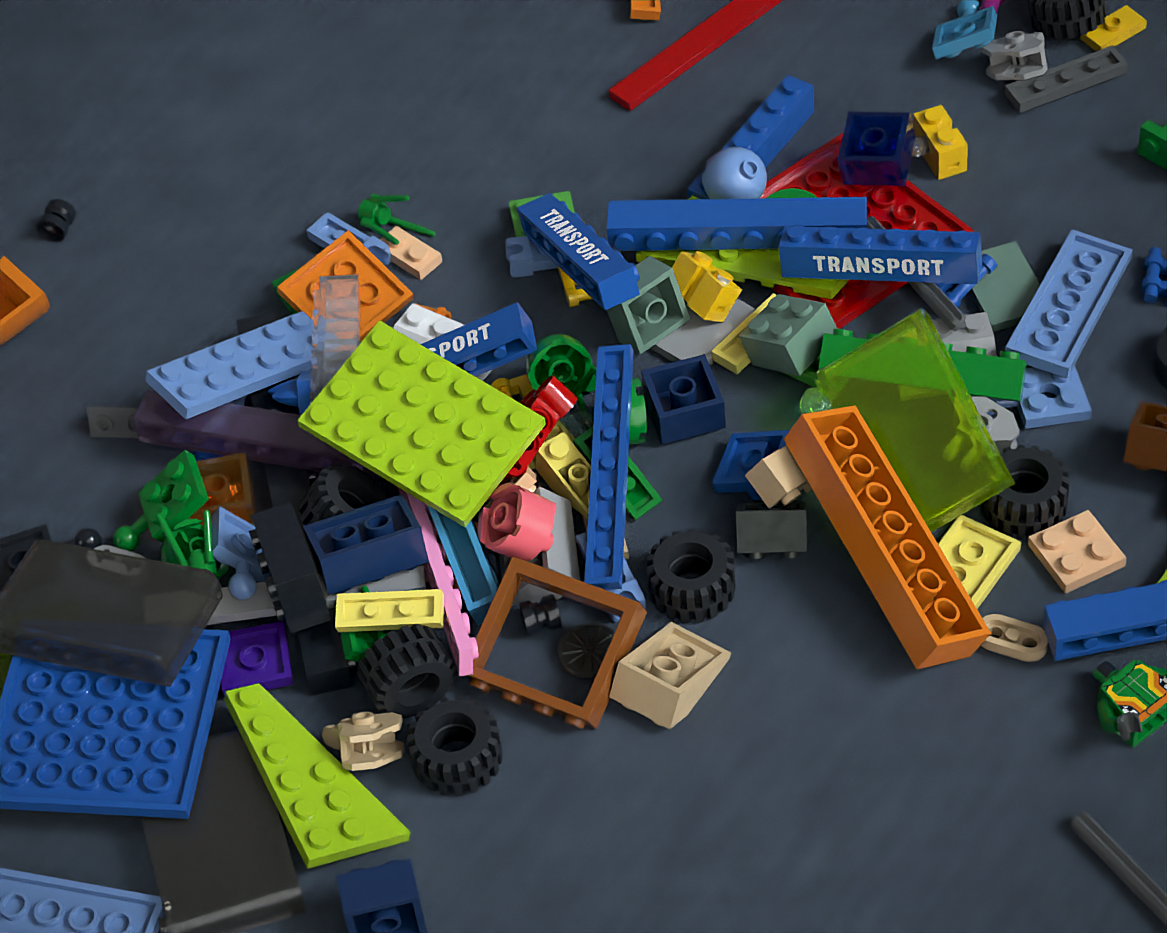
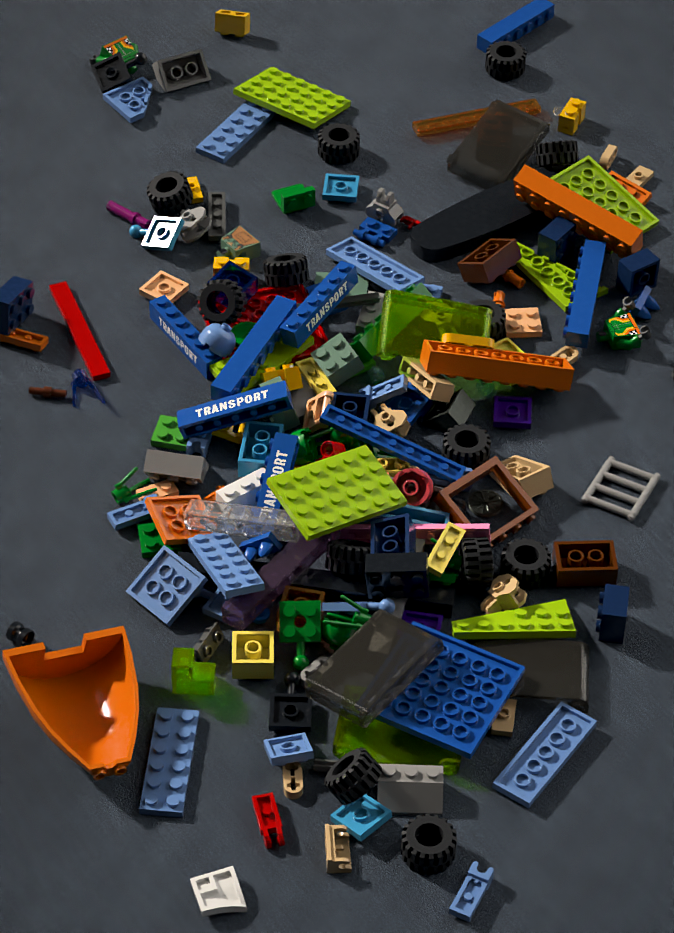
camera: 75 degrees left, 5 degrees down
(40, 419) = (191, 676): none -> clear neon green brick
(105, 473) = (252, 654): none -> light yellow brick
(111, 836) = (504, 722): none -> tan plate
(200, 322) = (166, 585): none -> medium blue plate
(456, 246) = (175, 467): none -> light grey slope
(492, 828) = (584, 563): none -> reddish brown brick
(551, 59) = (47, 392): none -> copper bar
(553, 310) = (256, 445): none -> dark azure brick
(593, 79) = (81, 380): none -> clear blue plant
(669, 353) = (315, 408): none -> light nougat plate
(691, 453) = (391, 420): none -> tan hinge
(742, 870) = (637, 502): none -> light grey bar
(753, 418) = (385, 390): none -> medium blue plate
(815, 144) = (235, 301): none -> black tyre
(828, 611) = (512, 412): none -> dark purple plate
(850, 87) = (165, 285): none -> light nougat plate
(908, 473) = (468, 340): none -> yellow beam
(971, 197) = (286, 270): none -> black tyre
(1008, 128) = (239, 244): none -> torso
(1106, 498) = (499, 298): none -> orange pin

